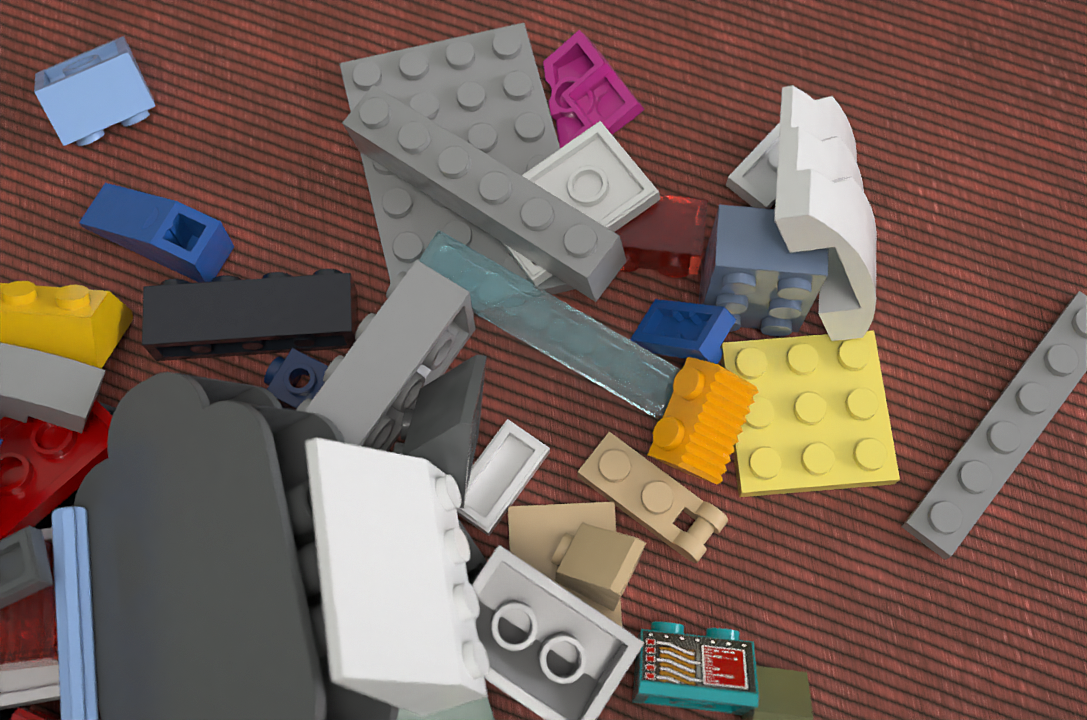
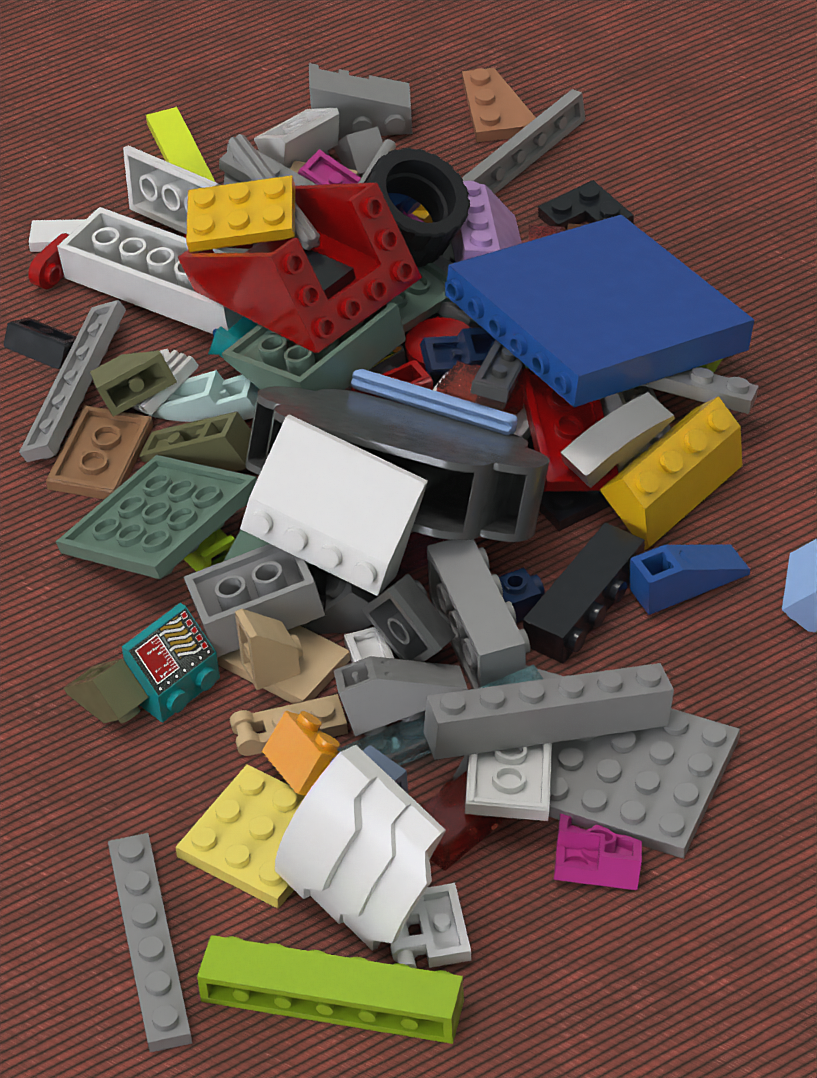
camera: 130 degrees right, 25 degrees down
(550, 378) = (391, 689): none -> light grey slope
(934, 208) = (331, 988): none -> lime brick

